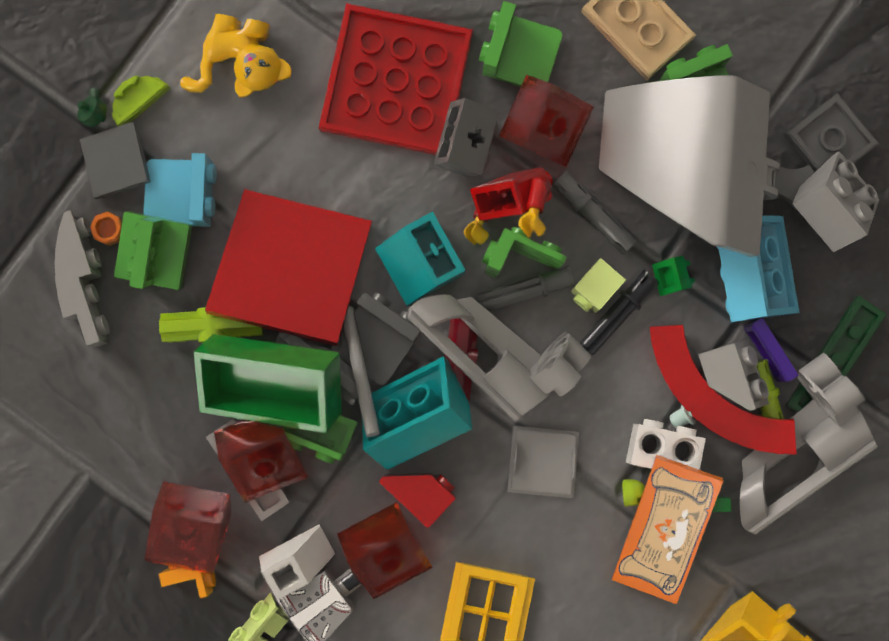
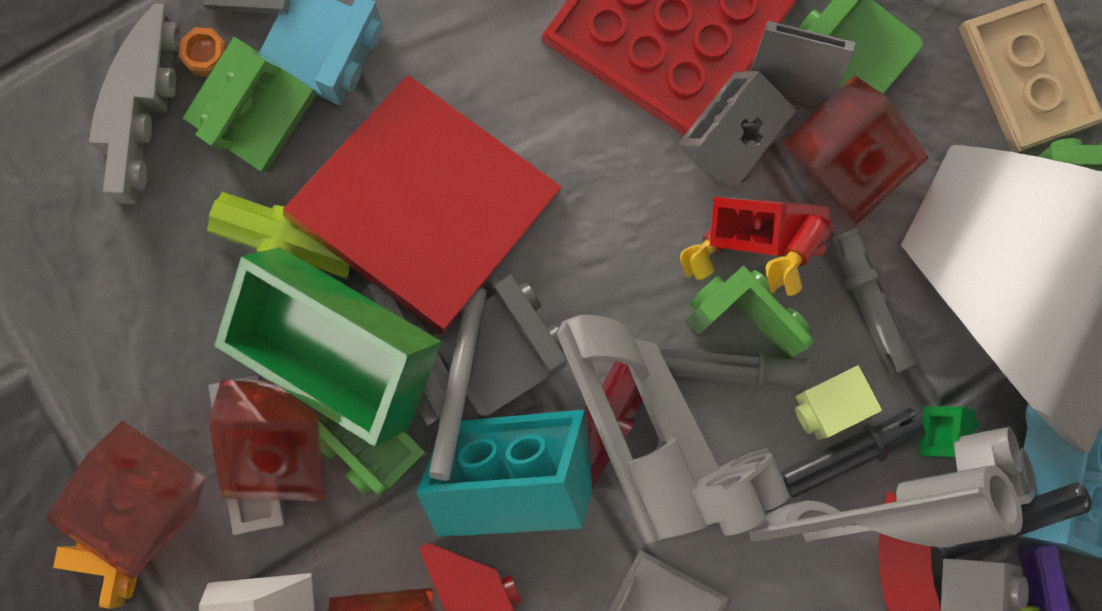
camera: 20 degrees right, 5 degrees down
(420, 259) = (607, 263): teal slope -> none
(490, 80) = (802, 63): none -> dark grey piece
(680, 329) = (935, 511): none -> light grey panel
(720, 324) = (1039, 513): none -> black axle

